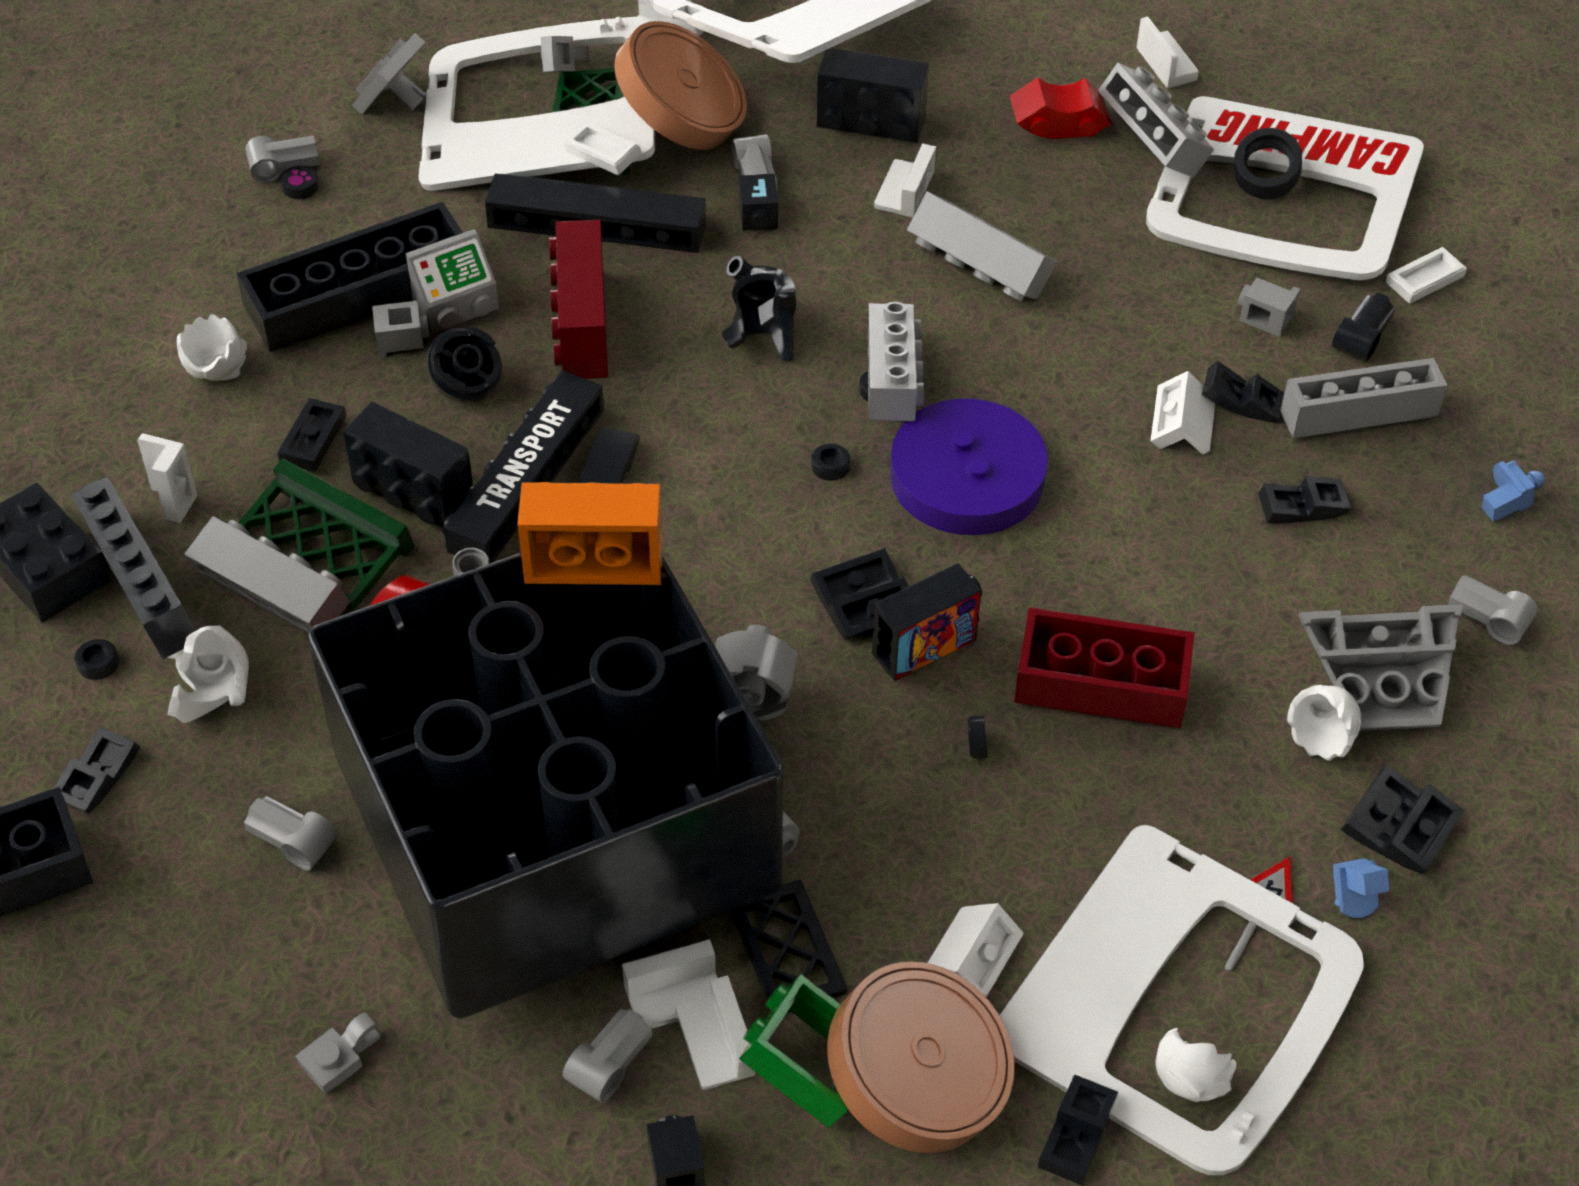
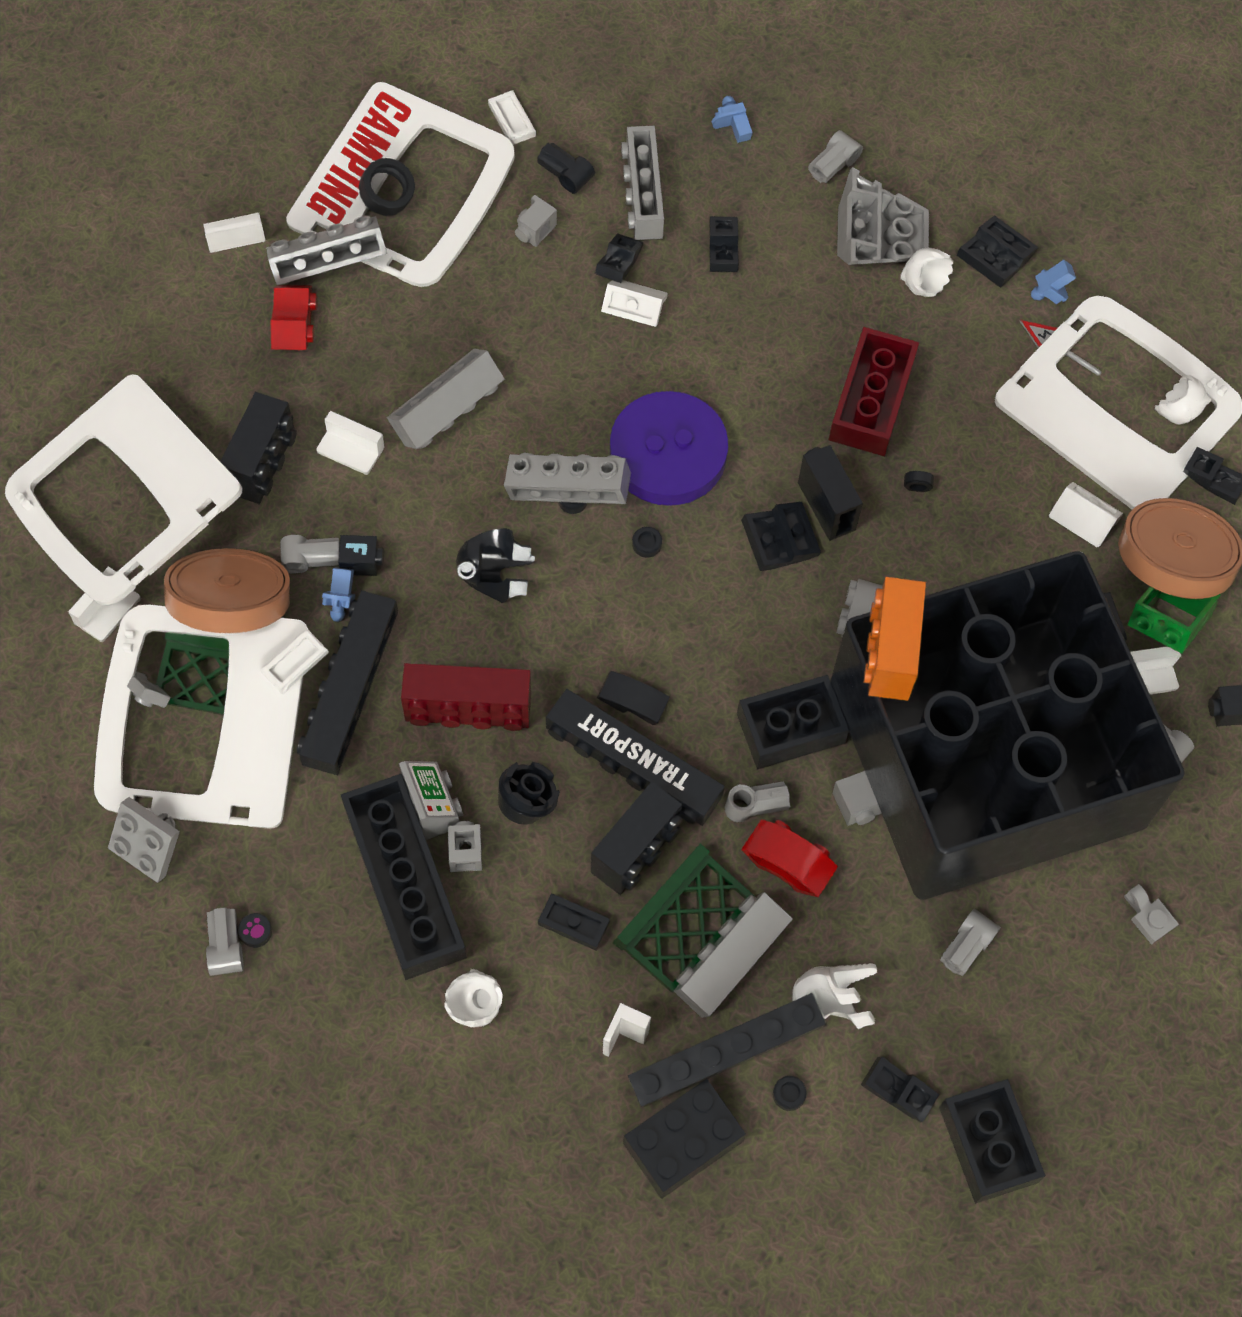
camera: 85 degrees left, 15 degrees up
(716, 191) = (340, 594): none -> medium blue piece

